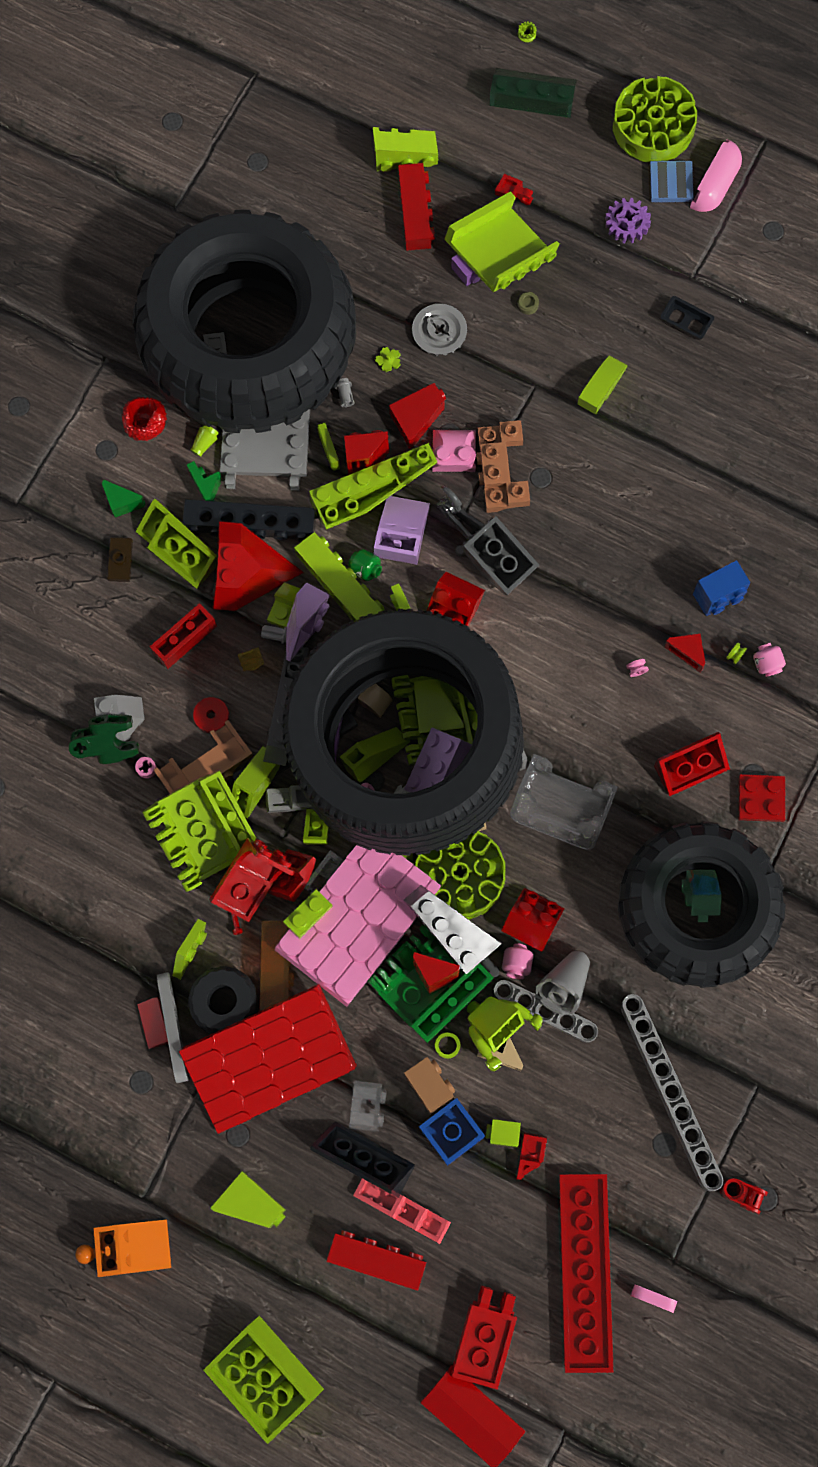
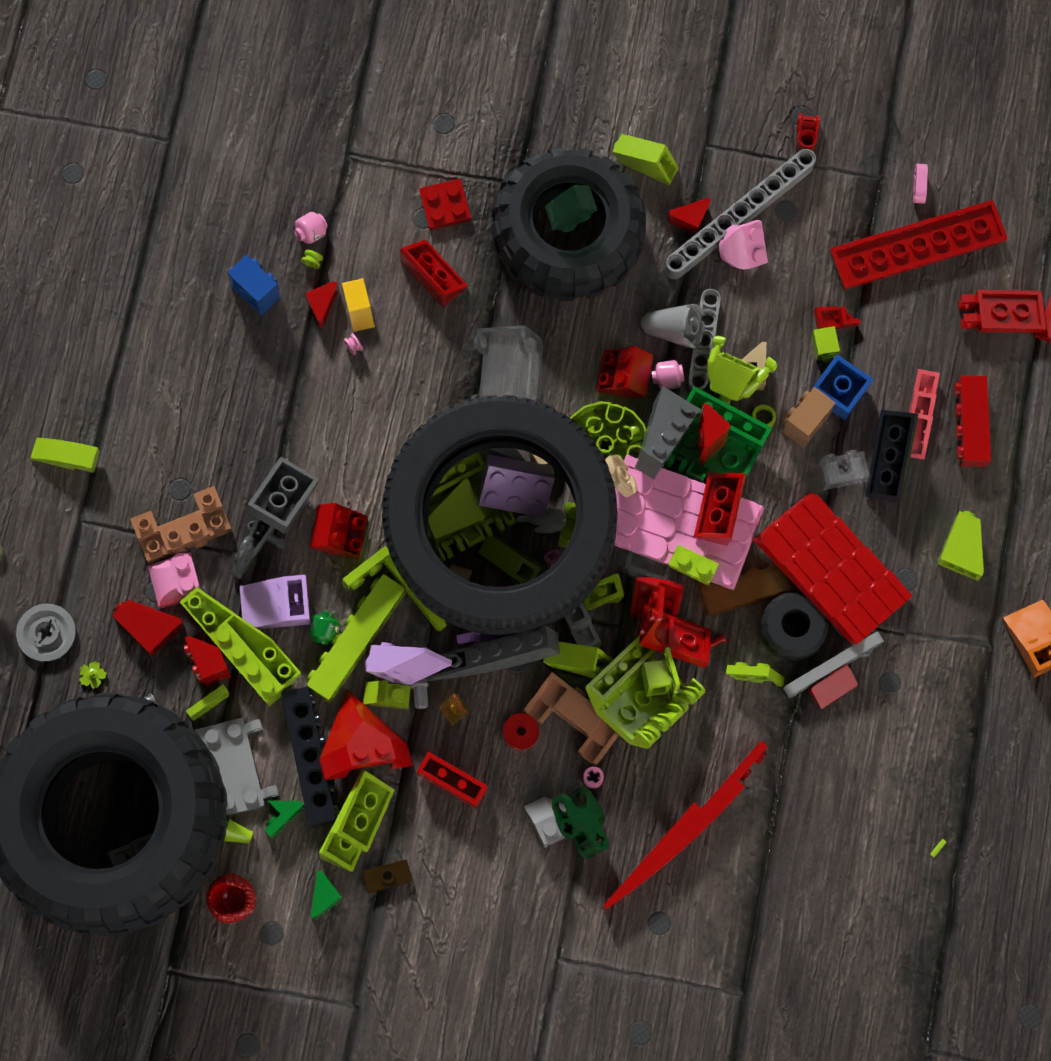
camera: 115 degrees left, 0 degrees up
(67, 840) = (689, 827): none -> red slope
(210, 860) = (675, 683): none -> lime window
(213, 846) = (656, 677): none -> lime brick
(355, 956) = (719, 507): none -> red slope
(415, 866) = (622, 481): none -> tan tile
(632, 1082) = (744, 246): none -> bright pink slope
(678, 682) = (358, 305): none -> yellow slope
(682, 1041) = (689, 216): none -> red slope
(757, 1012) = (646, 157): none -> lime slope

